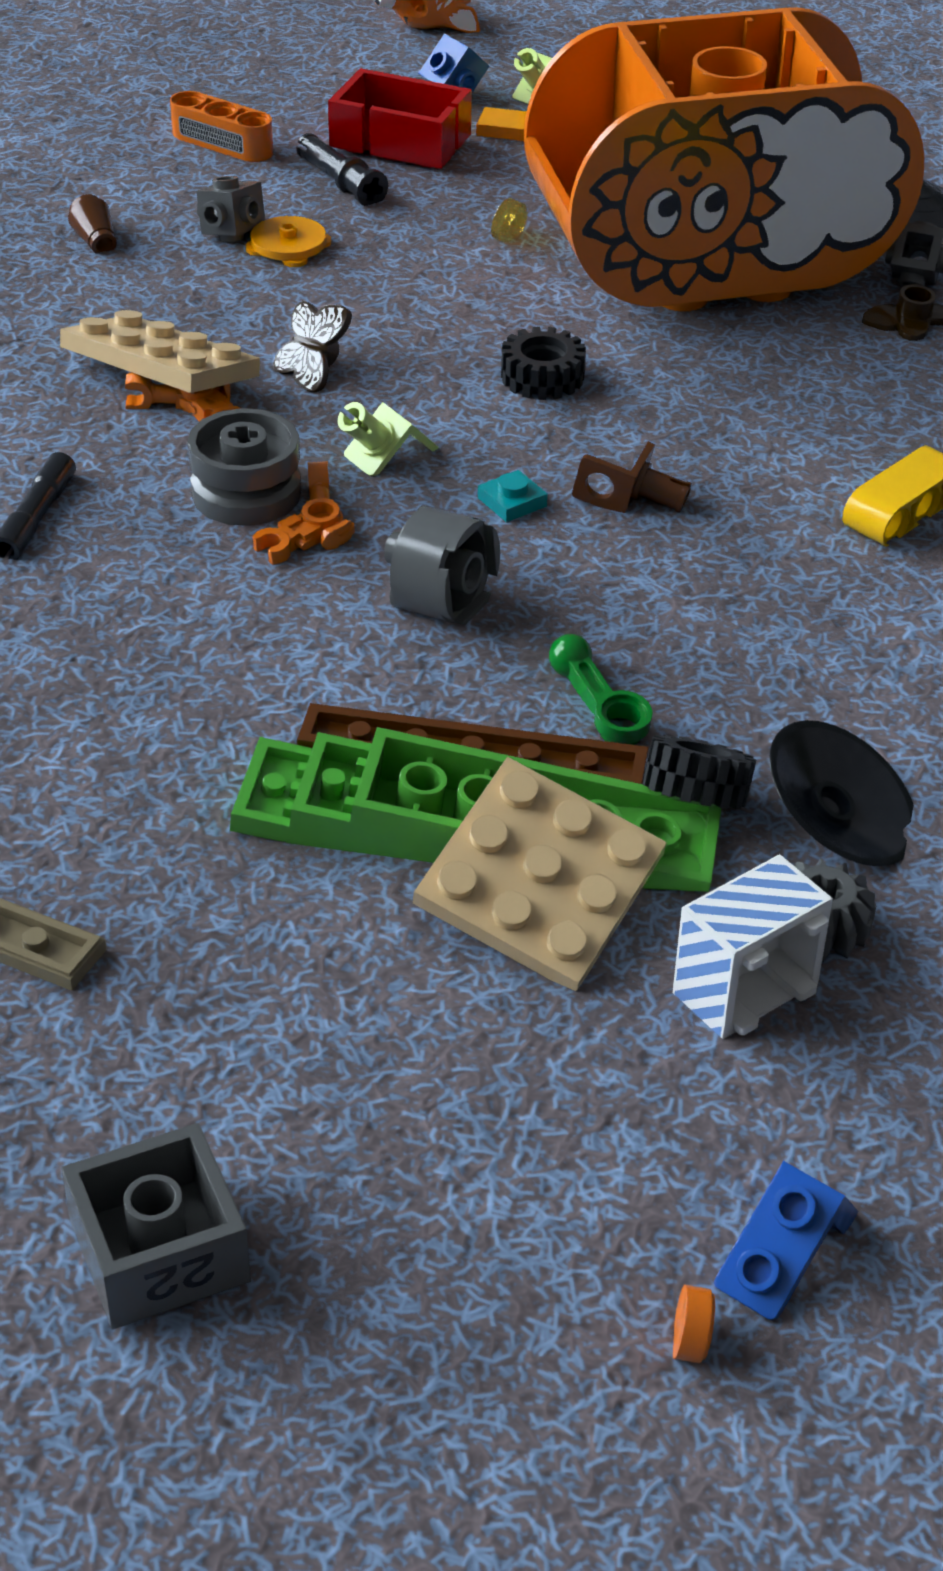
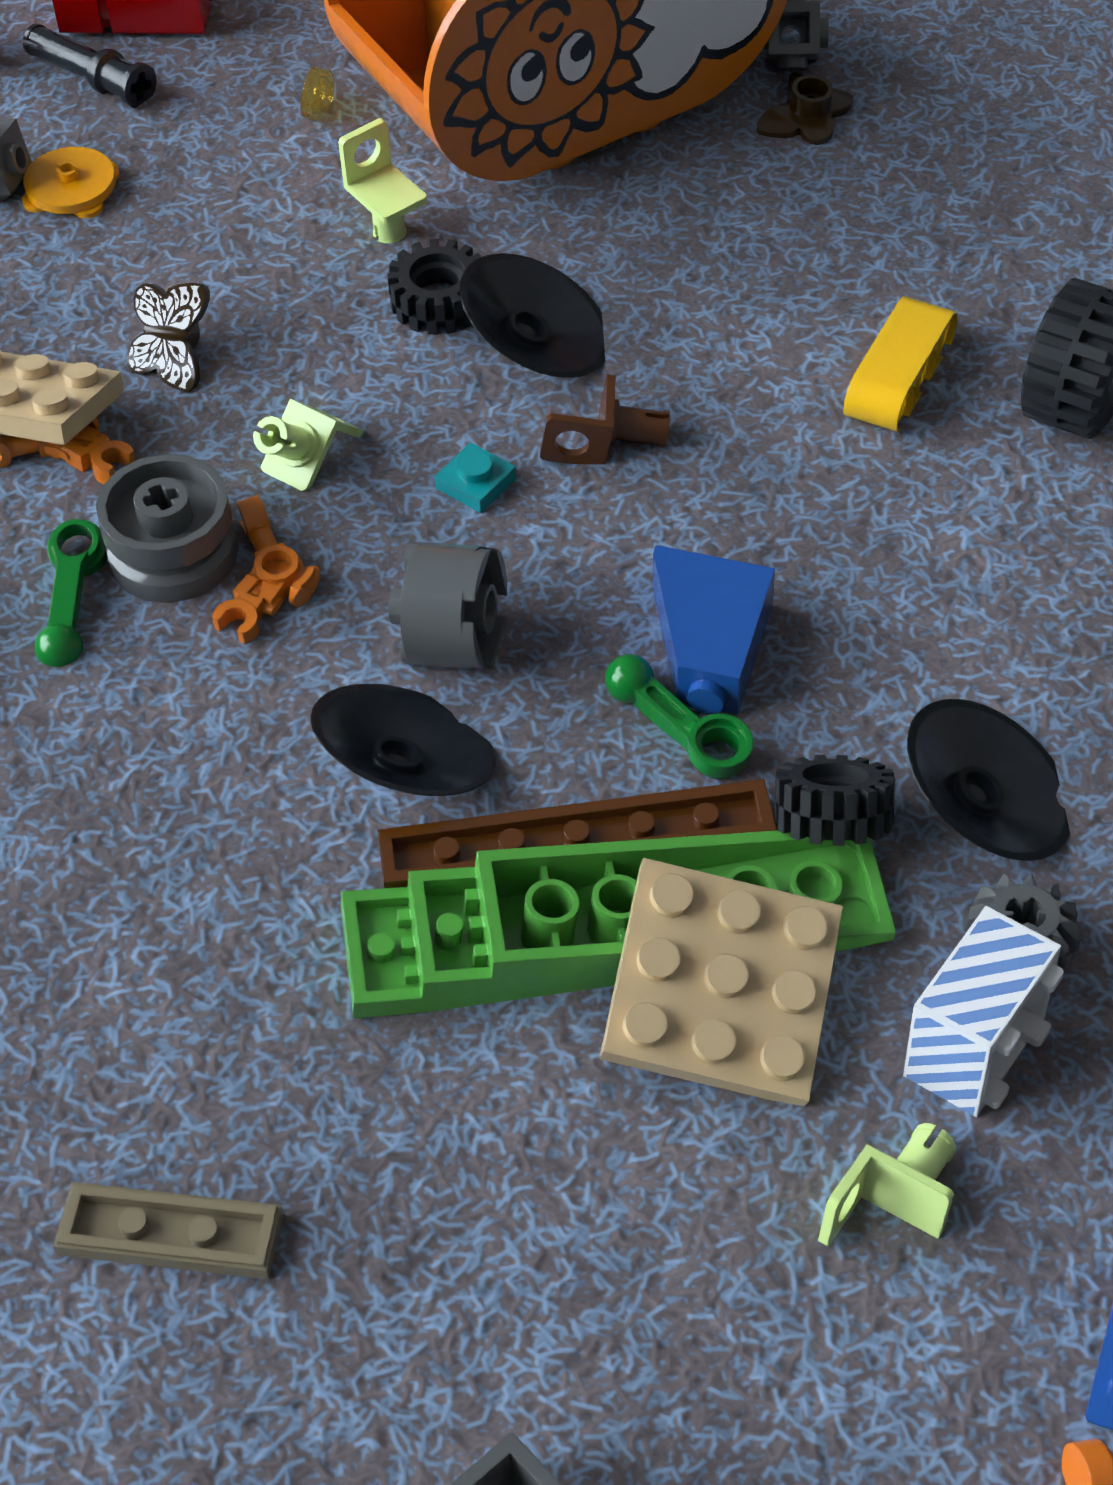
camera: 15 degrees left, 10 degrees up
(129, 525) = (59, 641): none -> green piece
(359, 647) = (401, 740): none -> black hat
(523, 278) = (378, 182): none -> yellowish green bracket
(609, 394) = (534, 315): none -> black hat
(629, 1065) = (898, 1185): none -> yellowish green bracket
(659, 632) = (711, 624): none -> blue slope

